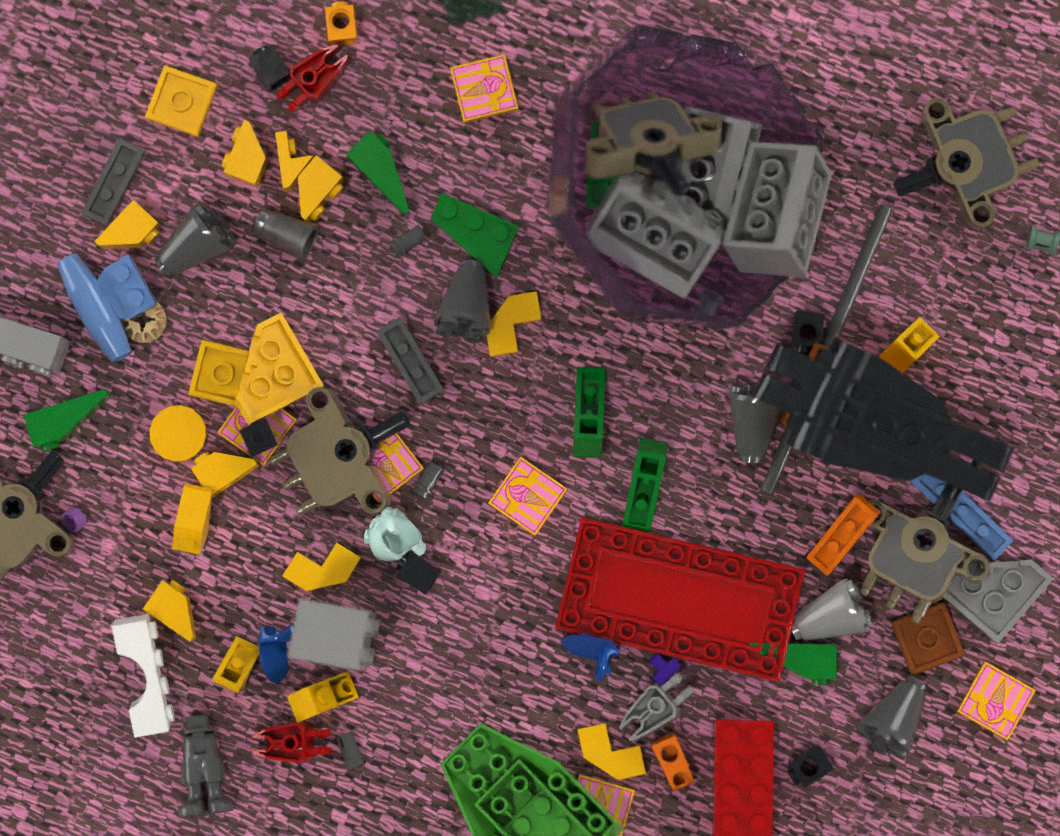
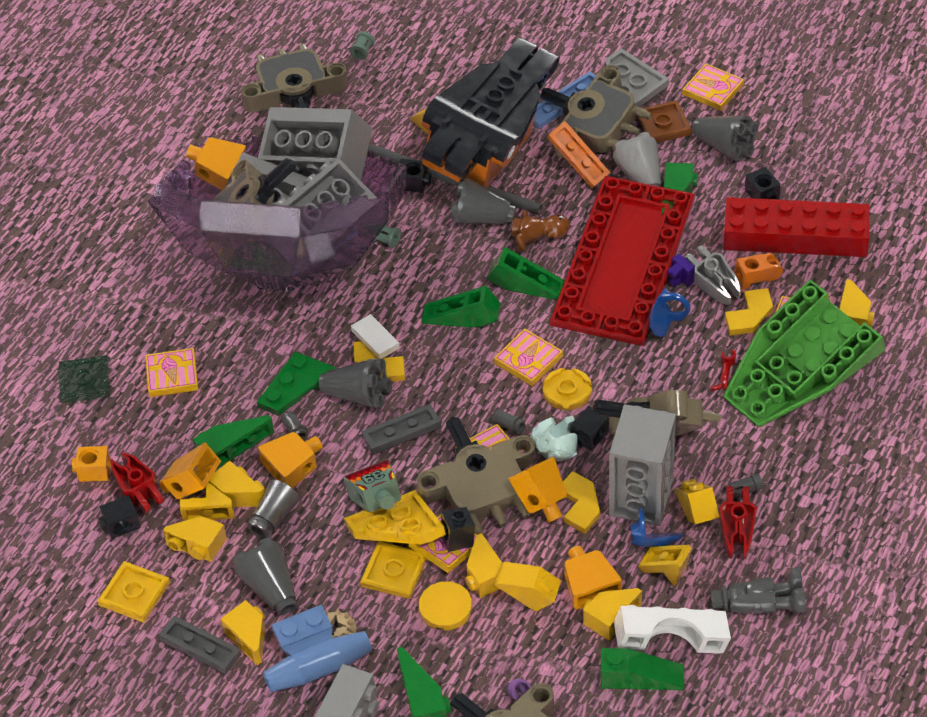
camera: 85 degrees left, 35 degrees down
(100, 645) = (637, 670): none -> green slope
(215, 584) = (588, 576): none -> light orange torso
(318, 342) = (373, 487): none -> sand green torso
(322, 136) = (181, 476): none -> light orange torso
(322, 523) = (540, 488): none -> light orange torso
(359, 242) = (290, 457): none -> light orange torso
(409, 648) = (687, 410): none -> dark tan piece
(483, 554) = (567, 389): none -> yellow tile
(511, 724) = (727, 362): none -> red piece
(540, 316) = (375, 336): none -> white tile
(724, 486) = (532, 228): none -> dark orange animal
(743, 93) = (215, 160): none -> light orange torso

